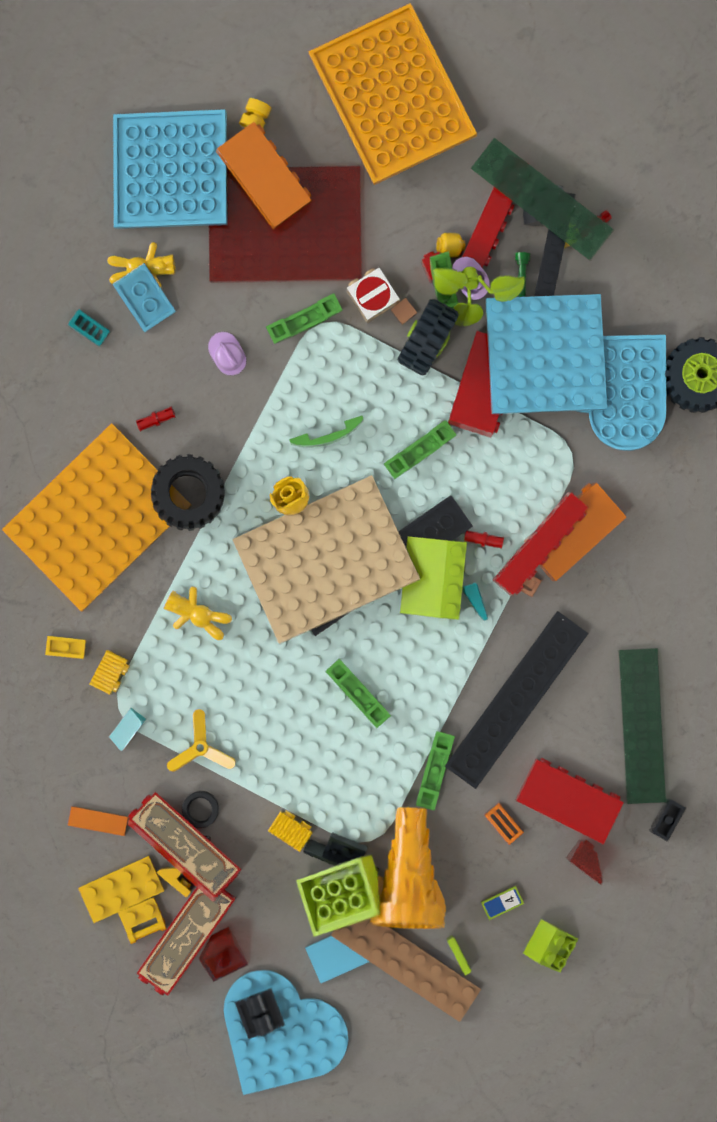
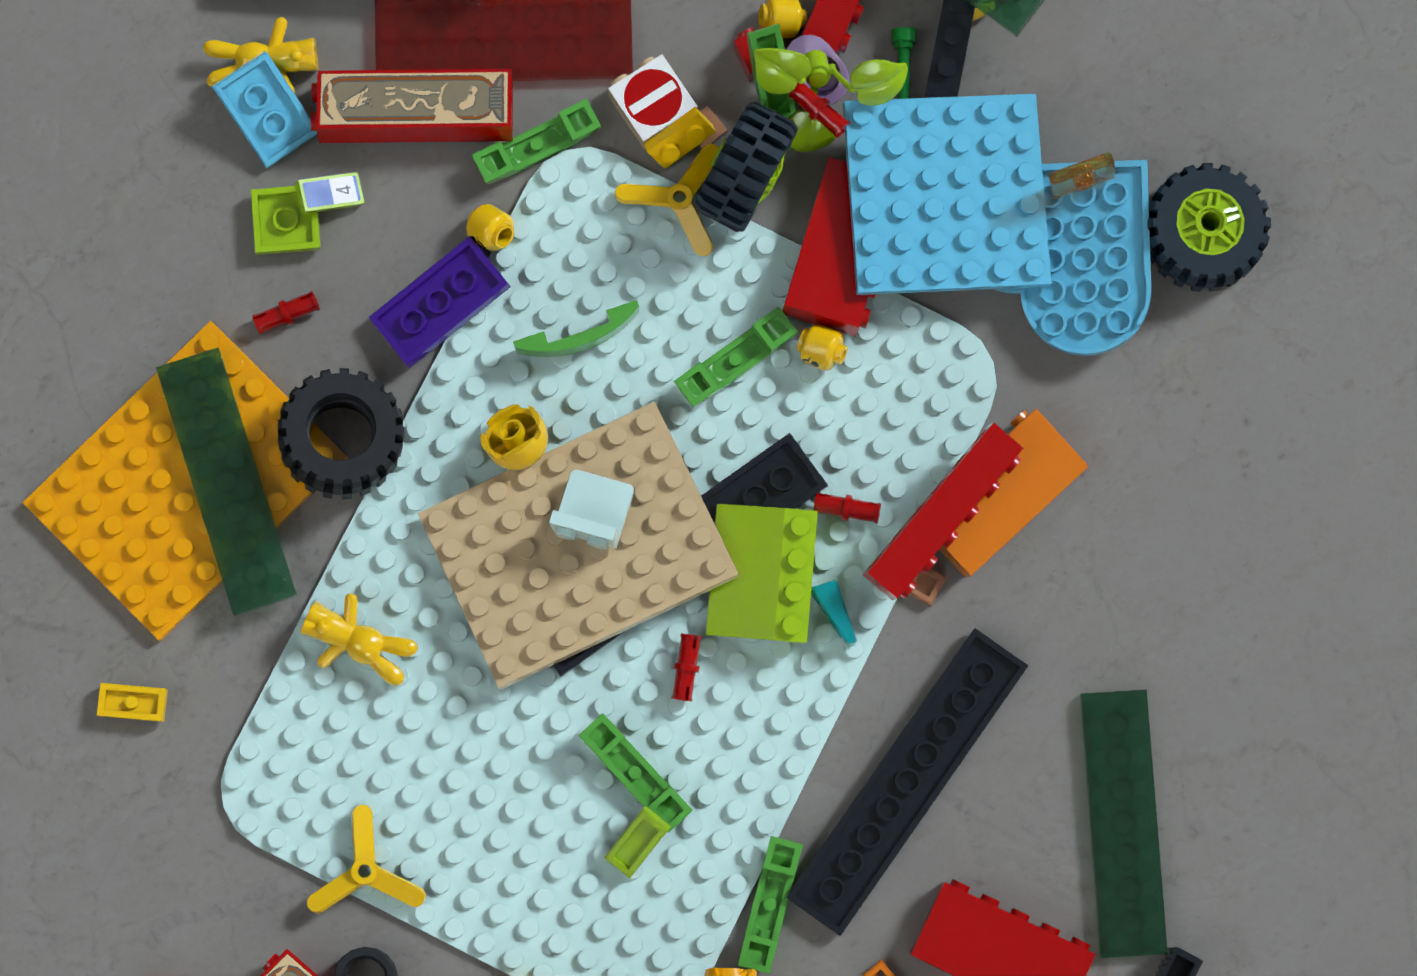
camera: 10 degrees left, 5 degrees down
(76, 316) = (154, 164): teal slope -> none
(109, 672) = (207, 744): yellow brick -> none
(120, 519) = (226, 481): none -> clear green plate
(127, 728) = (238, 840): slope -> none
(155, 363) = (279, 222): none -> lime plate
(181, 348) = (329, 193): none -> tile
(227, 353) = (407, 202): lavender piece -> none
(231, 296) = (413, 105): none -> brick
(246, 414) = (439, 302): none -> dark purple plate
(276, 370) = (490, 227): none -> yellow head
(335, 540) = (592, 510): none -> light aqua bracket
(358, 733) = (637, 842): none -> lime tile
(388, 317) = (680, 138): none -> yellow plate
(388, 632) = (686, 667): none -> red pin
(391, 361) = (684, 210): none -> yellow piece
(470, 444) = (822, 347): none -> yellow head
(472, 303) = (819, 109): none -> red pin
(626, 345) = (1082, 175): none -> clear orange plate

